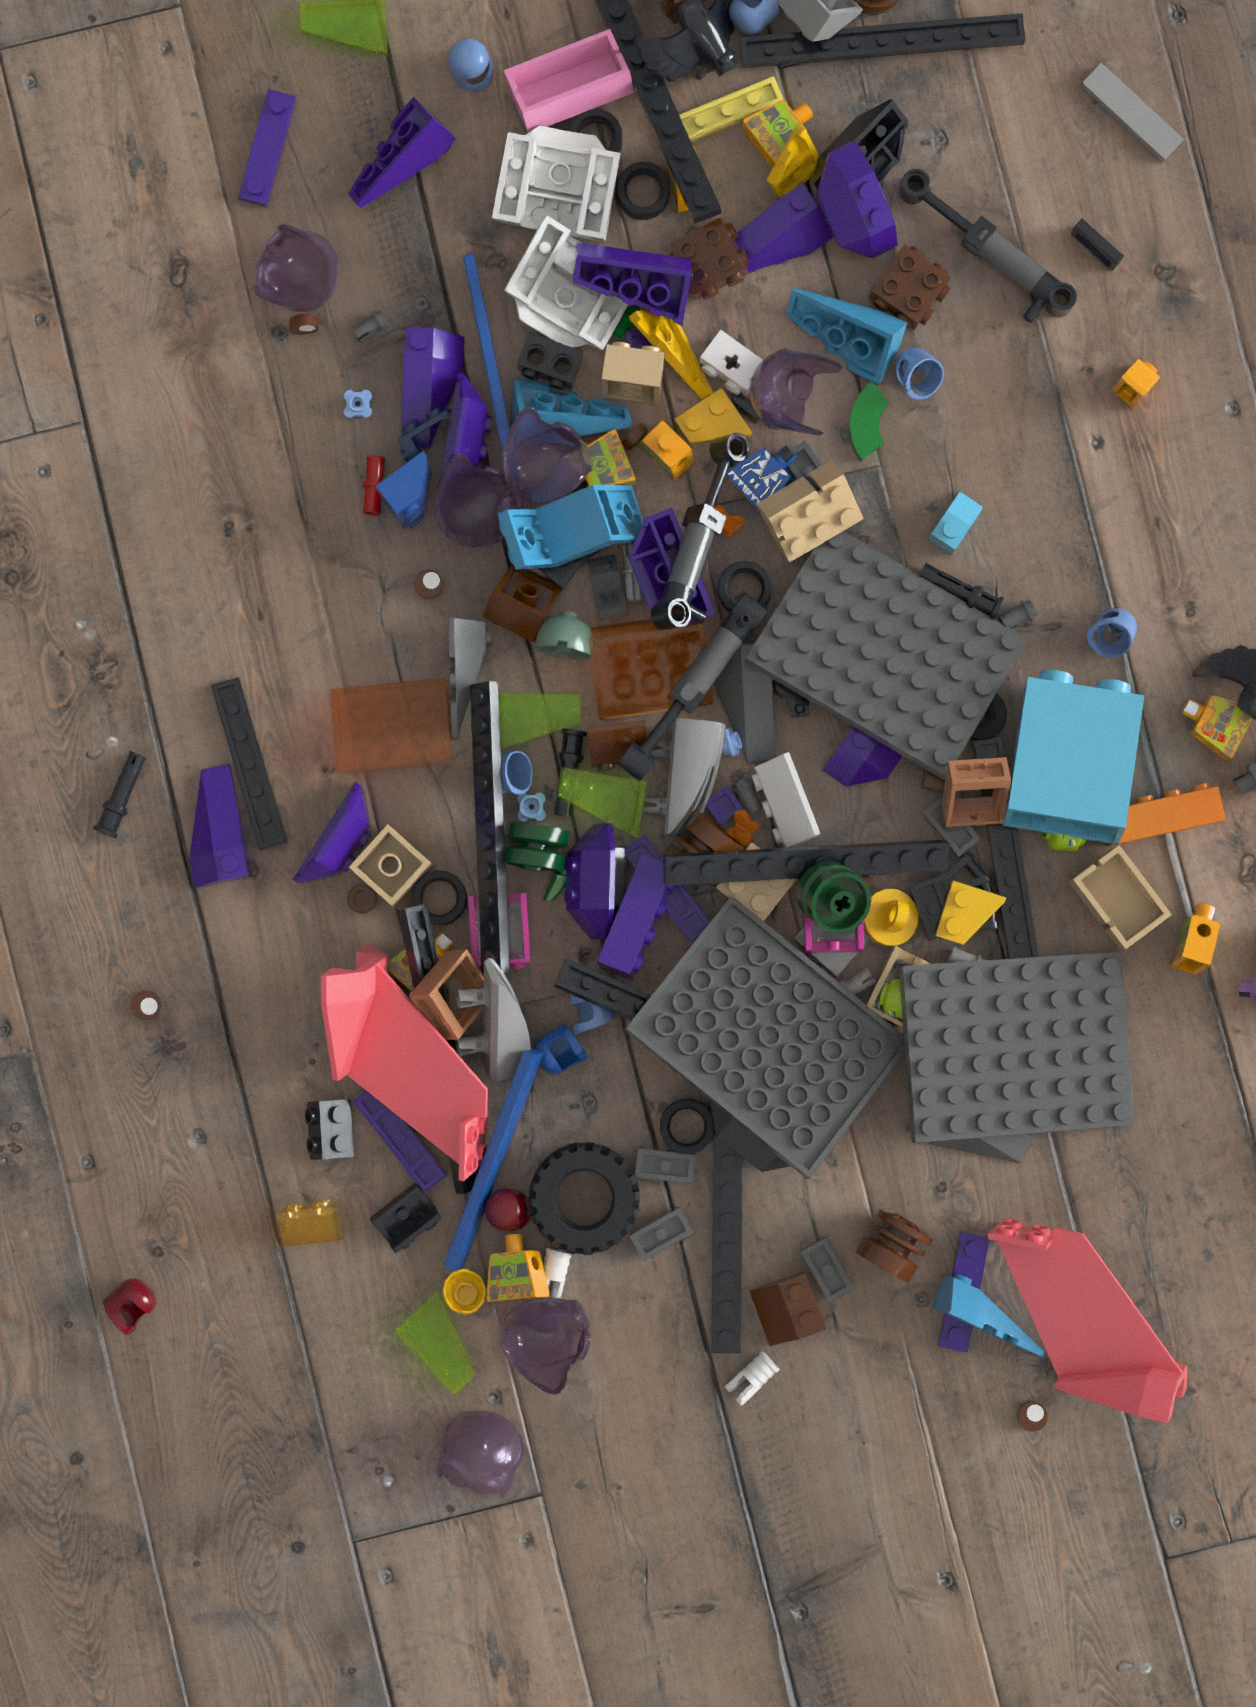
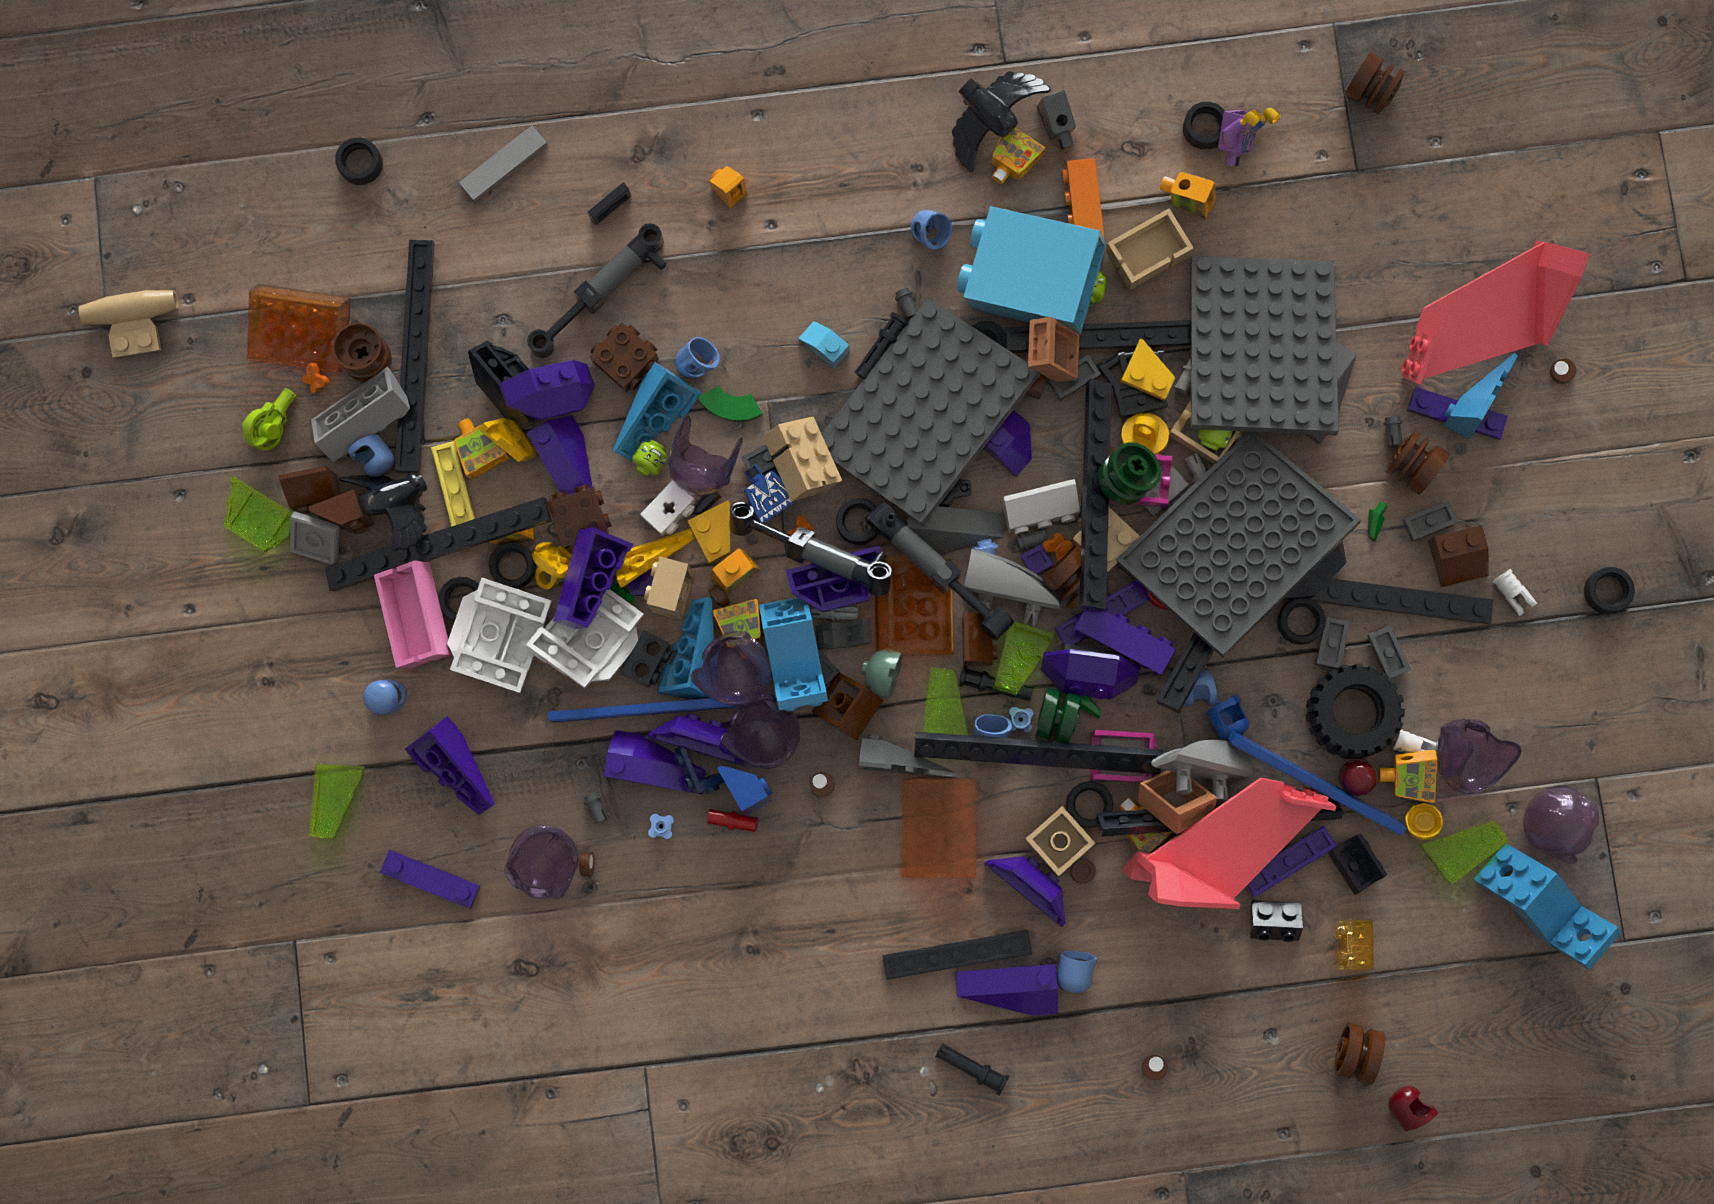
camera: 75 degrees left, 5 degrees down
(184, 1233) = (1359, 1053): none -> reddish brown wheel
(237, 900) = (1074, 974): none -> medium blue helmet
(379, 1443) = (1547, 906): none -> dark azure bracket
(650, 233) = (552, 561): none -> yellow tile
(762, 1513) = (1625, 581): none -> black tyre
(790, 332) = (649, 458): none -> lime head
(820, 1205) = (1376, 520): none -> green bar
(932, 1216) = (1393, 430): none -> dark grey pin

